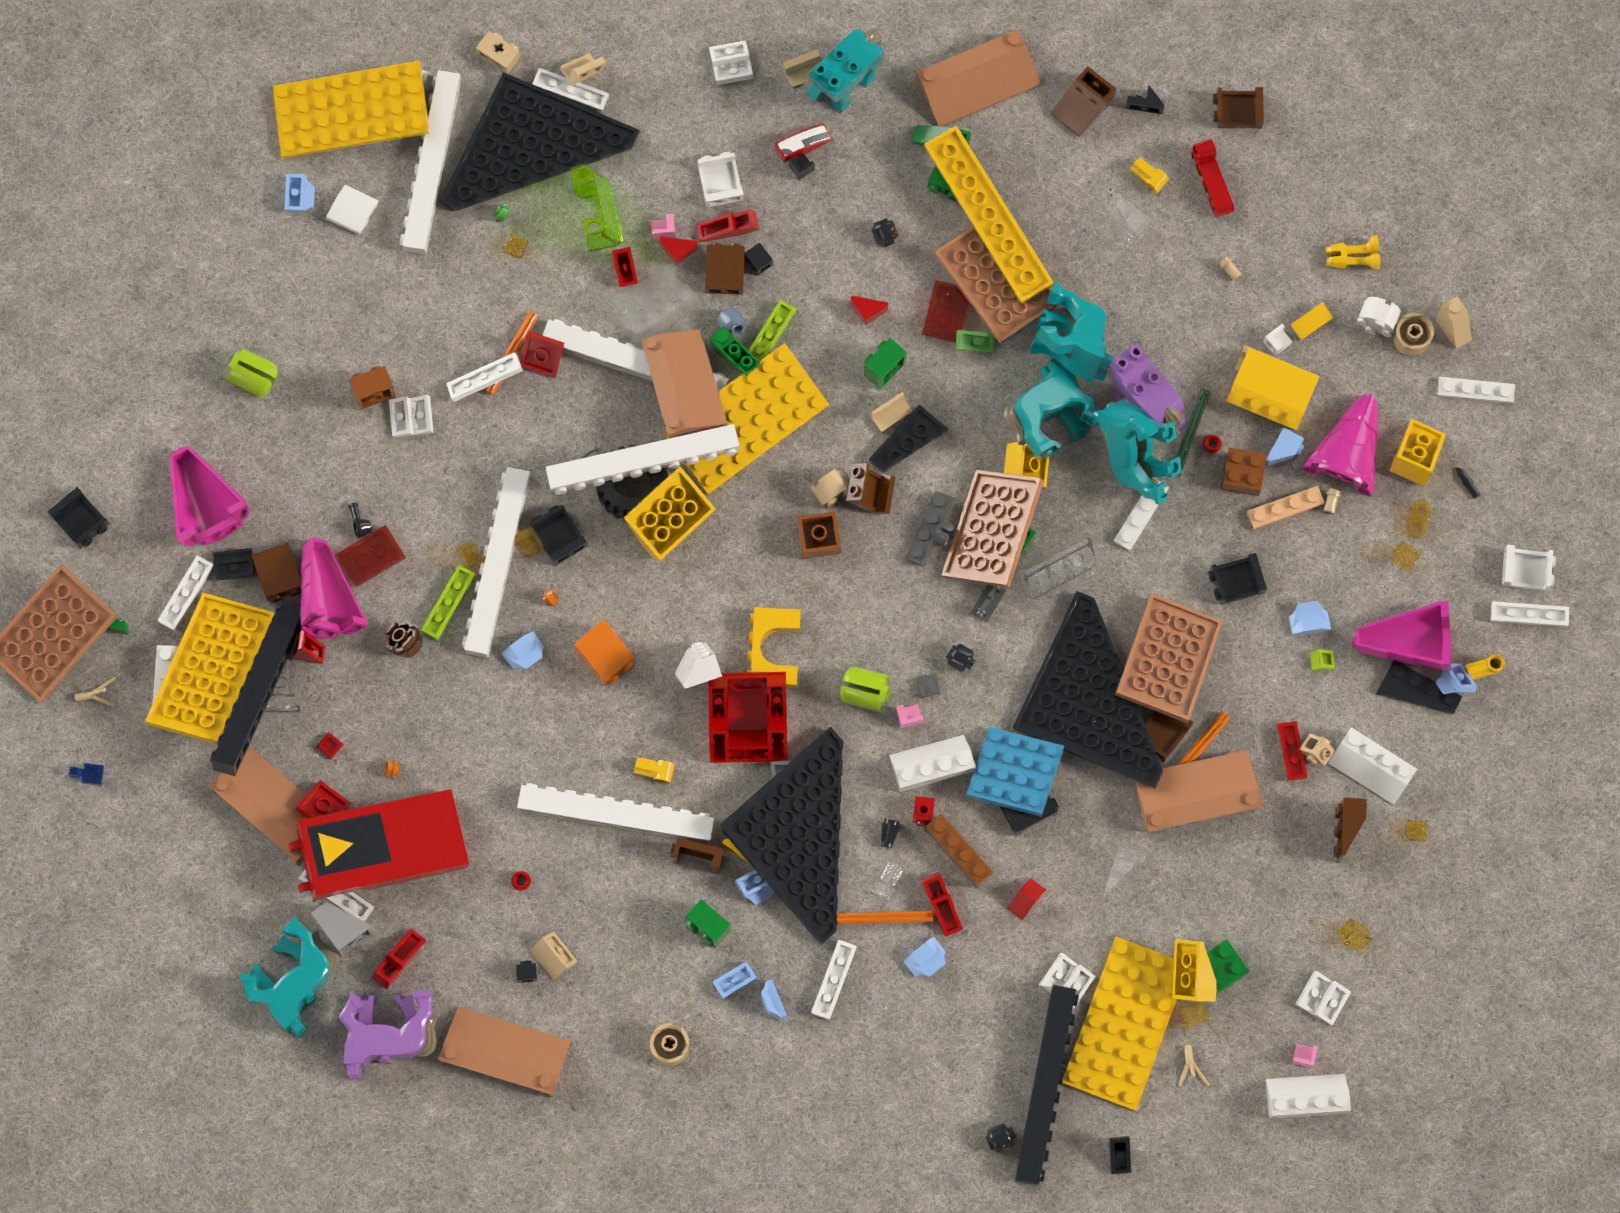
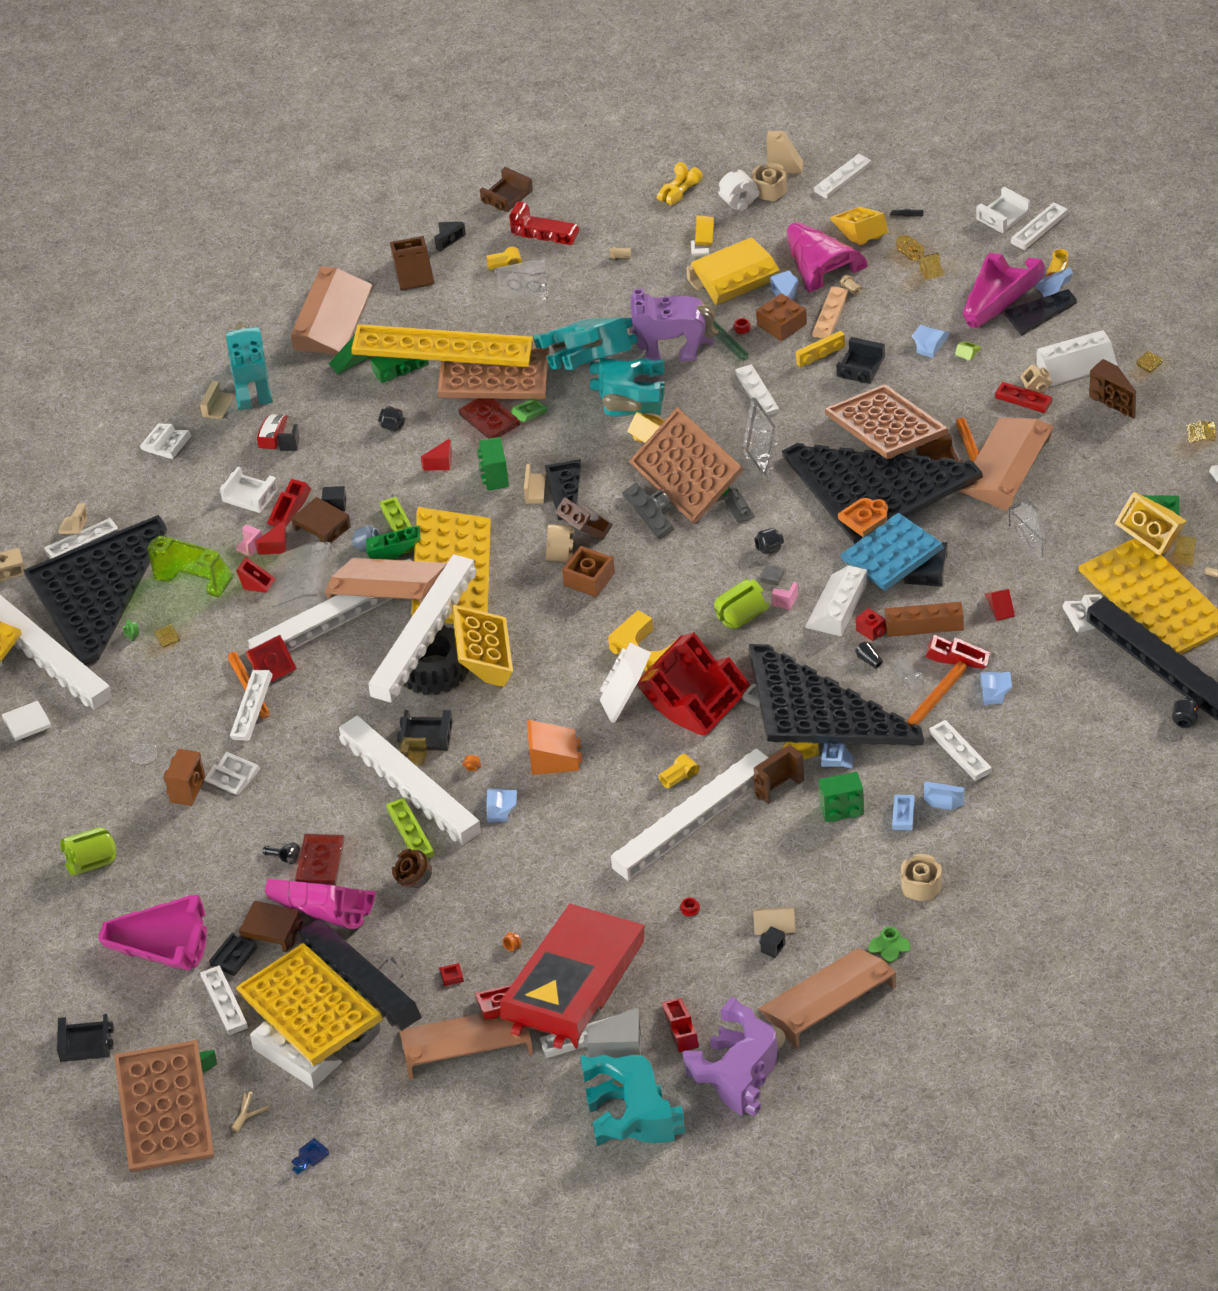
camera: 45 degrees left, 30 degrees down
(308, 649) = (355, 937): red slope -> none
(469, 555) = (383, 796): clear yellow panel -> none
(587, 1066) = (887, 946): none -> bright green plate
(1040, 720) = (864, 515): none -> orange plate
(1130, 448) = (700, 351): teal piece -> none
(1227, 534) = (820, 349): none -> yellow plate

